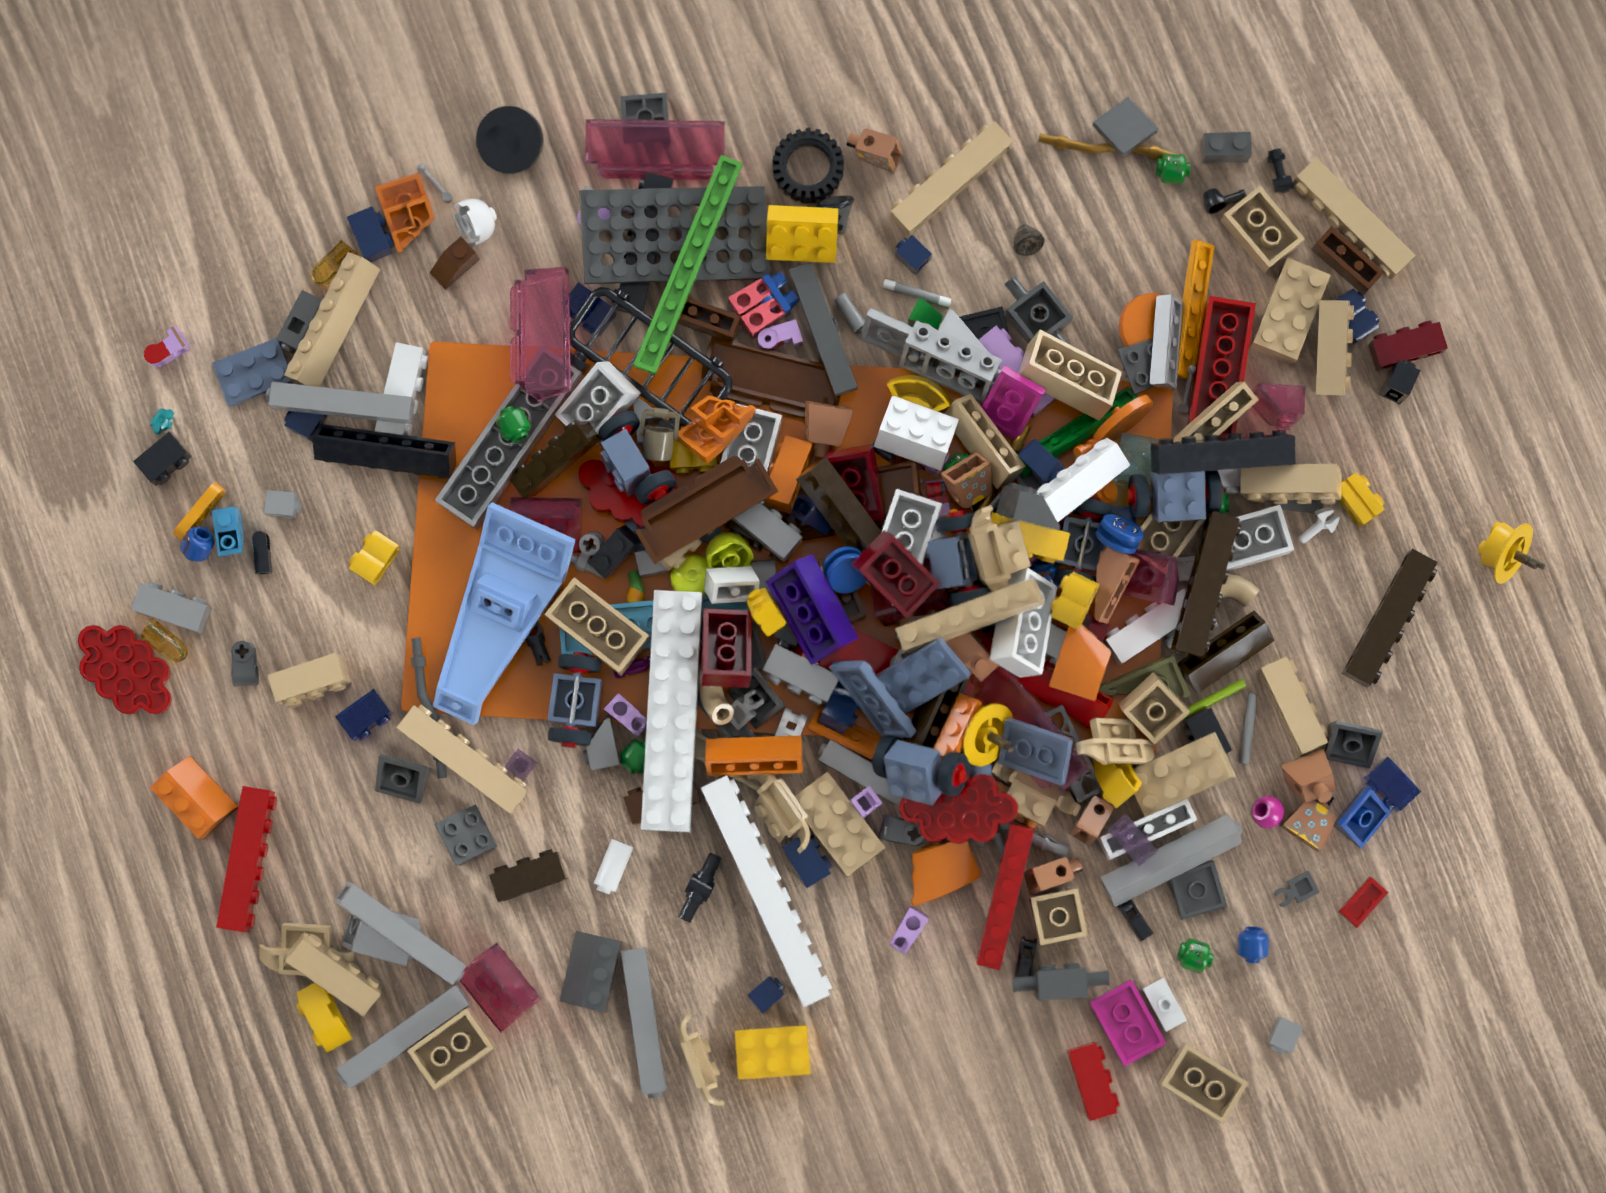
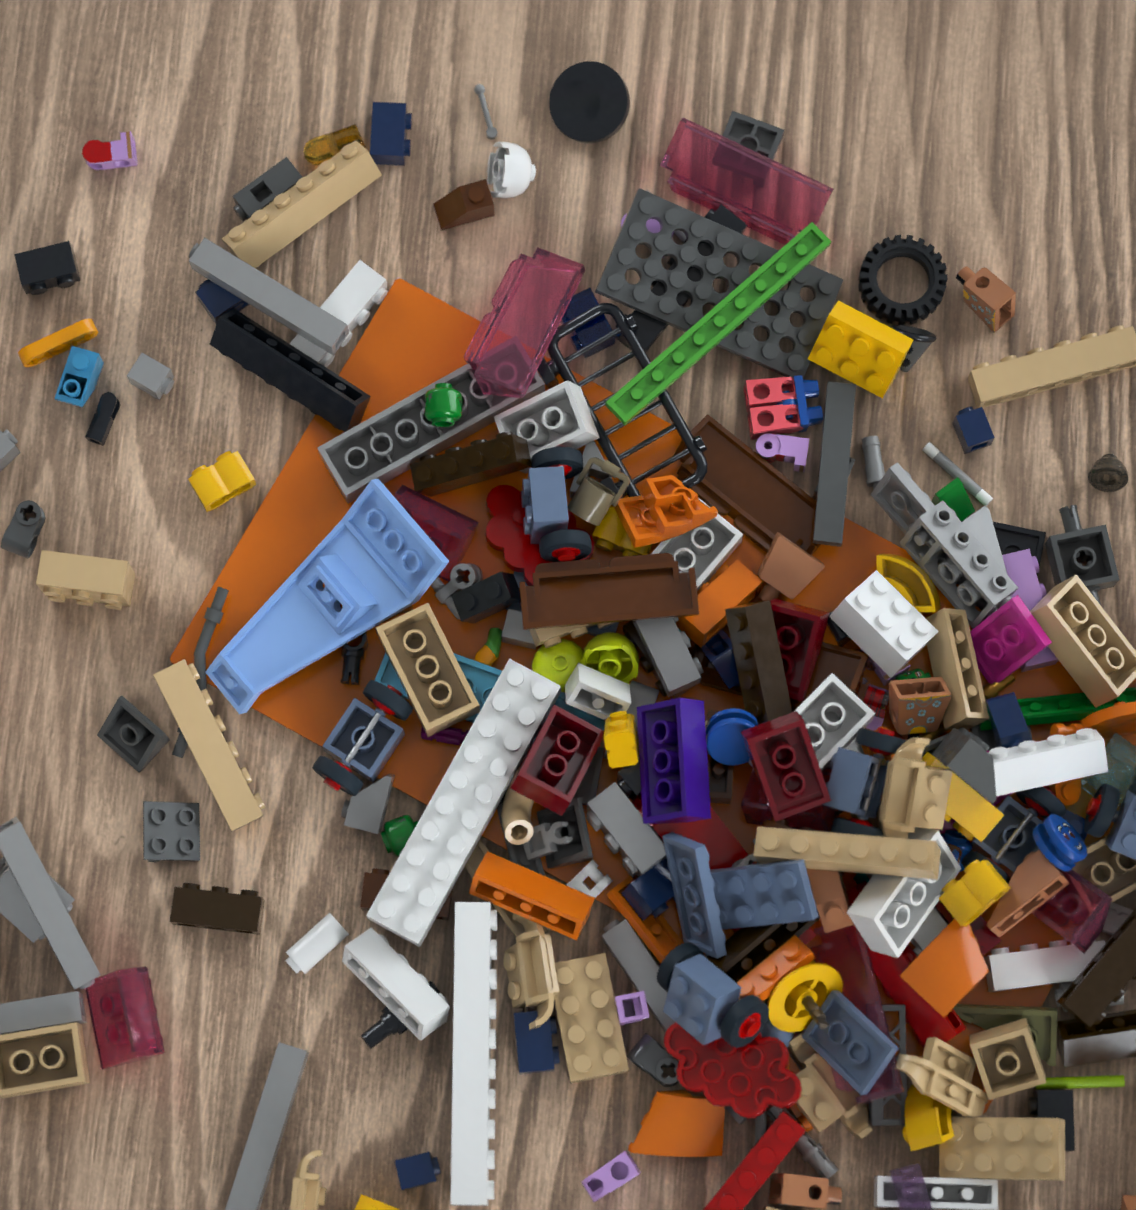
camera: 20 degrees right, 5 degrees down
(162, 420) = (67, 226): teal plant -> none
(197, 544) = (38, 375): blue head -> none
(251, 372) = (186, 218): sand blue plate -> none
(364, 715) = (126, 647): clear blue brick -> none
(405, 208) = (440, 123): orange slope -> none
(520, 764) = (269, 782): clear purple plate -> none
(591, 971) = (234, 1050): dark grey slope -> none
(626, 714) = (412, 782): lavender leg -> none
(686, 867) = (396, 983): none -> white brick
(710, 319) = (713, 395): reddish brown brick -> none
(1089, 823) = (873, 1154): nougat torso -> none
(1248, 728) = (1104, 1135): light grey bar -> none

